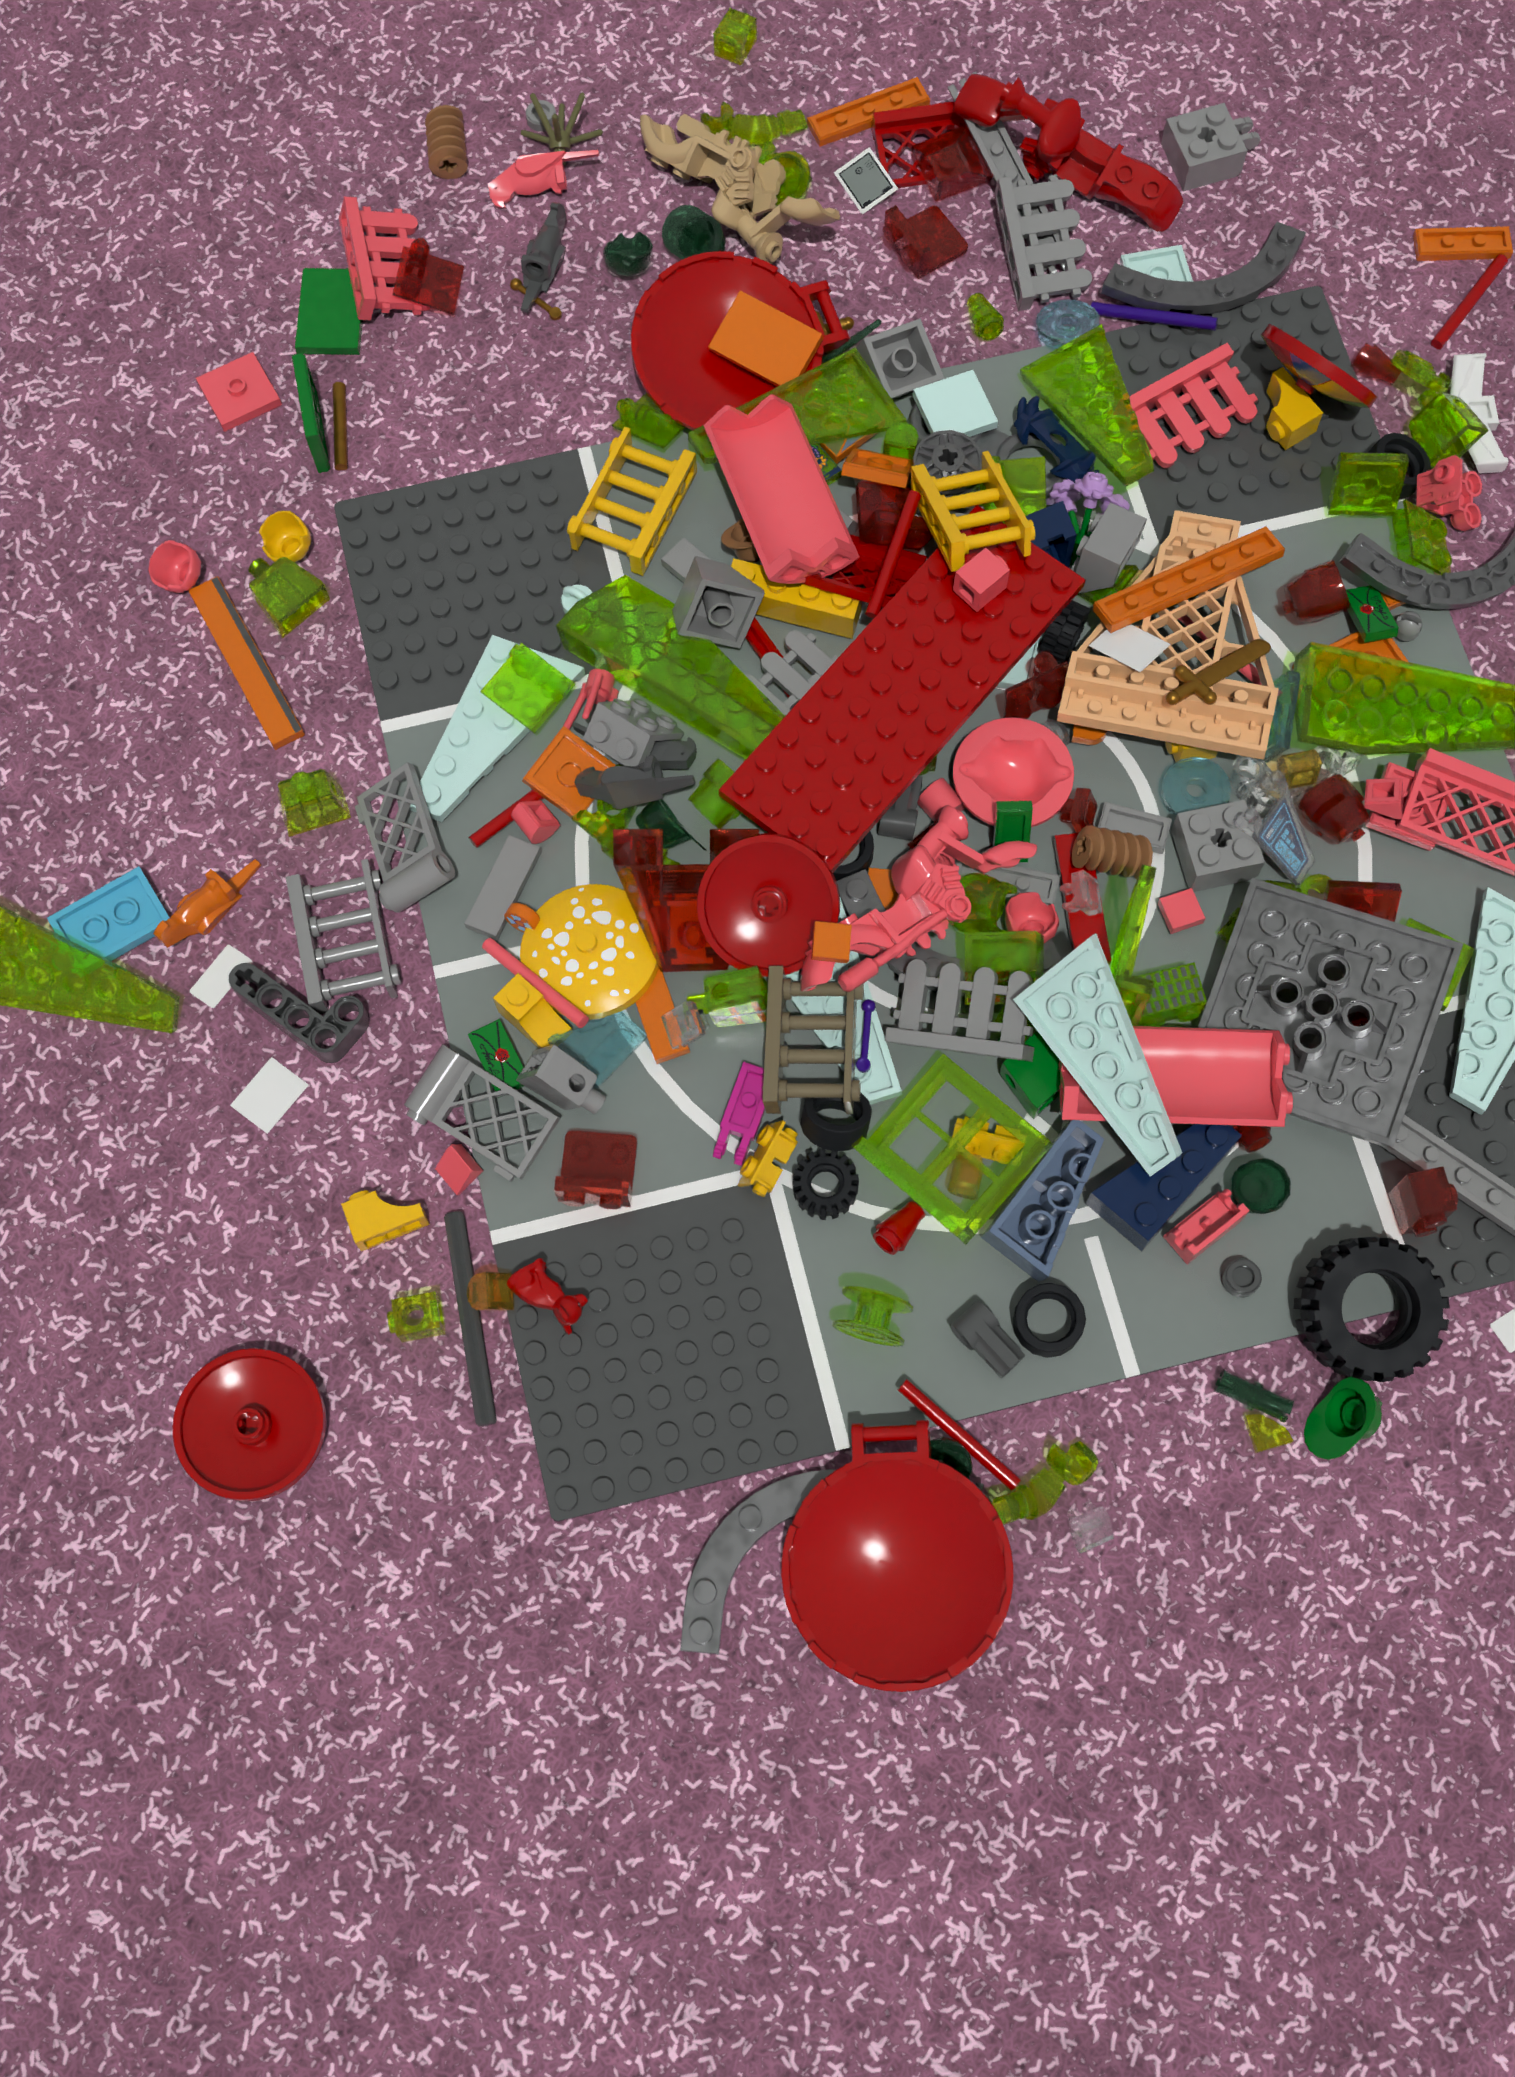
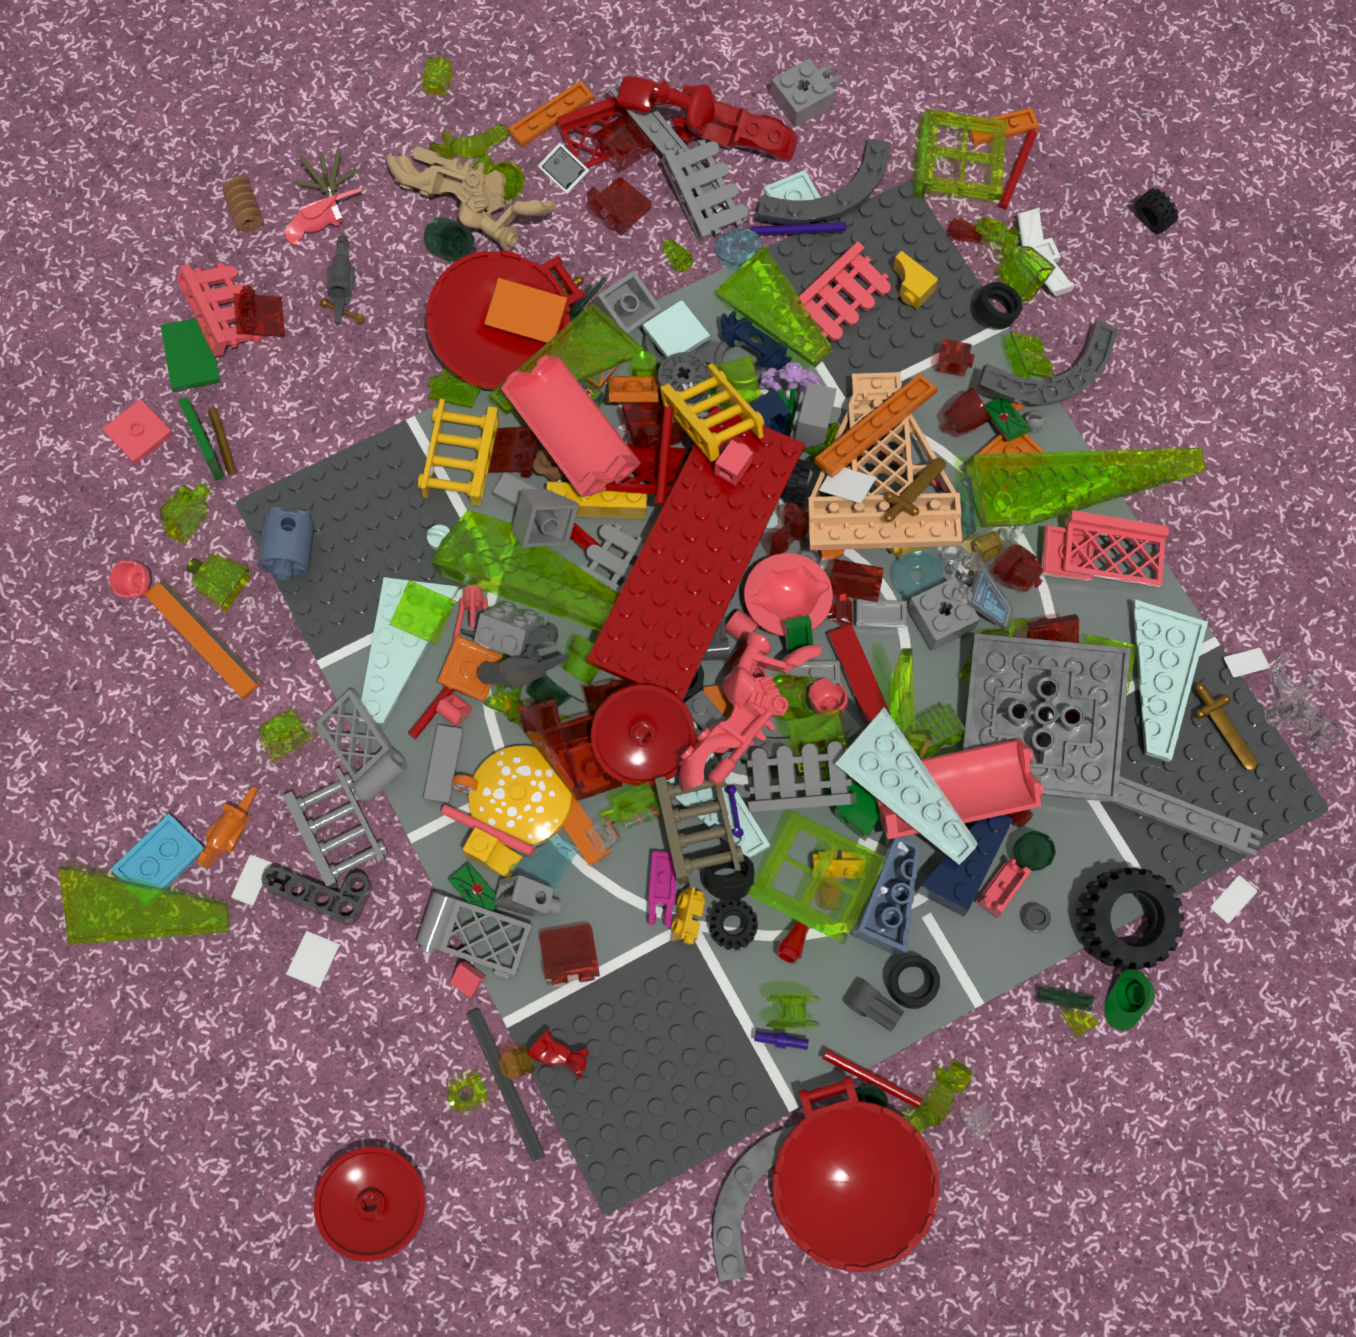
camera: 20 degrees left, 0 degrees up
(262, 495) = (184, 512): none -> clear neon green torso
(285, 536) = (207, 537): yellow hair -> none
(377, 1222) = (421, 1032): yellow arch -> none
(378, 562) = (285, 543): none -> sand blue cylinder
(533, 118) = (302, 171): light grey tile -> none
(628, 255) = (404, 263): clear green hair -> none
(704, 515) = (514, 451): none -> clear red hinge
(831, 942) = (698, 754): orange tile -> none
(849, 1351) = (781, 1040): none -> dark purple bar
(1085, 892) = (861, 670): clear tile -> none
(1110, 776) = (856, 580): none -> clear red hinge
(1111, 851) = (872, 636): medium nougat piece -> none
(1181, 910) = (929, 666): coral tile -> none
(1315, 371) = (926, 251): dish -> none
(1319, 520) = (954, 357): none -> clear red brick
(1355, 248) = (929, 149): none -> clear neon green window
(1367, 484) = (983, 324): clear neon green hinge -> none
(1385, 796) = (1050, 552): coral slope -> none
(1423, 1201) = (1146, 835): clear red brick -> none
(1451, 493) = (1040, 317): coral piece -> none

